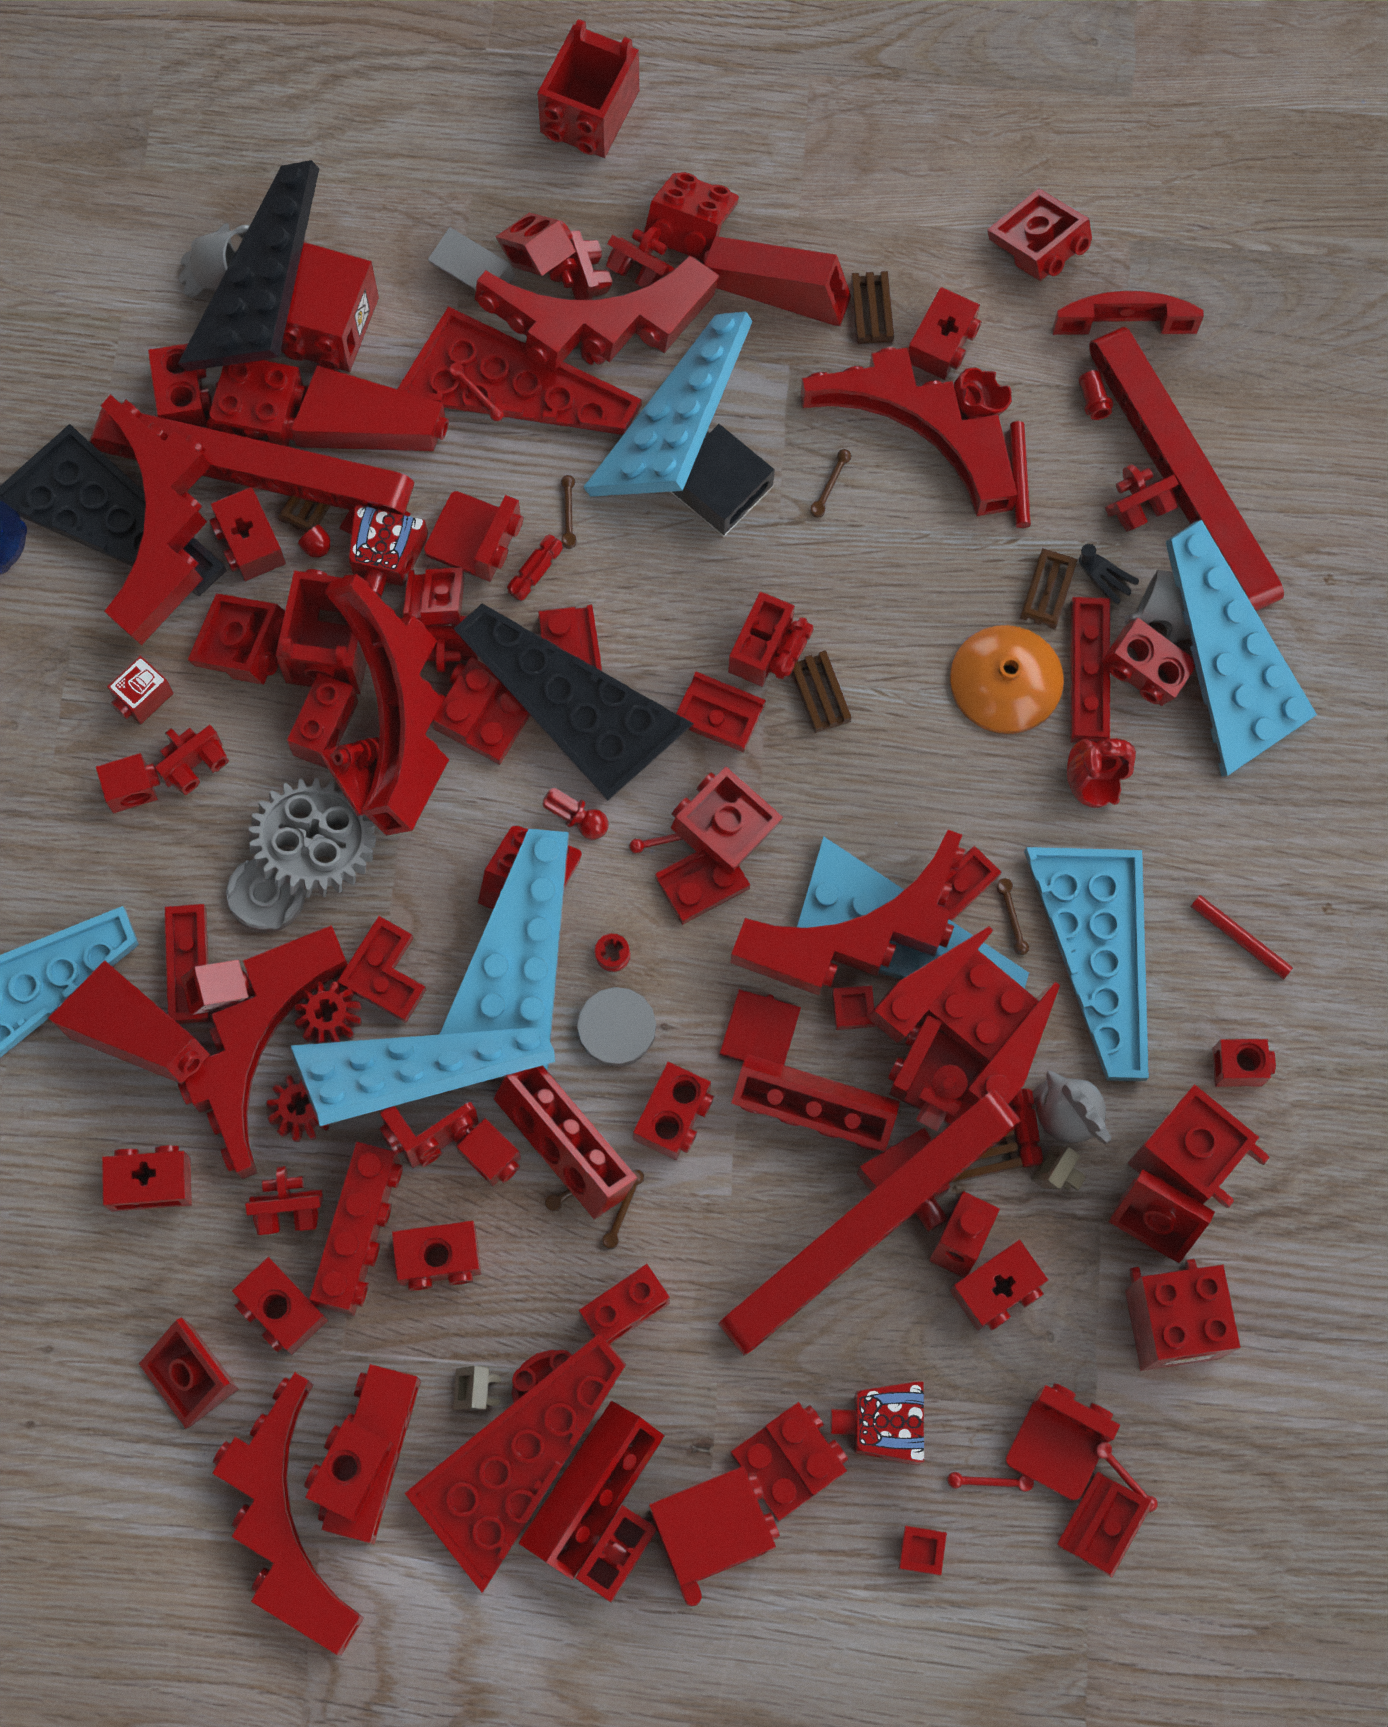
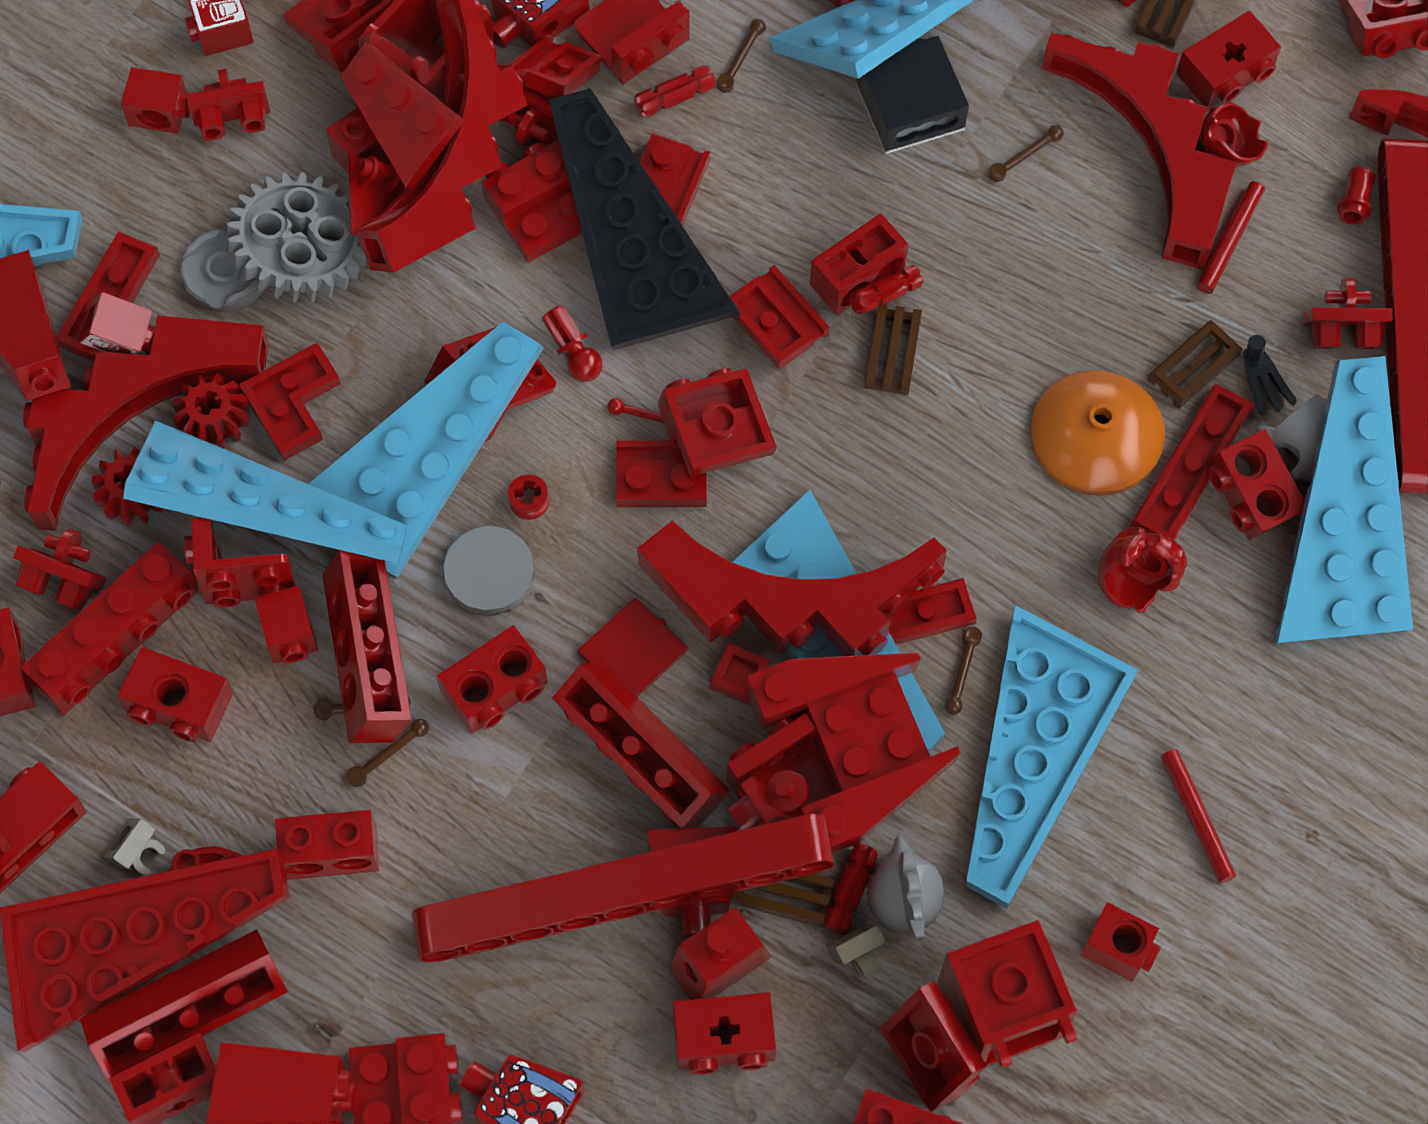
camera: 30 degrees right, 5 degrees down
(346, 698) = (401, 113): none -> red wing

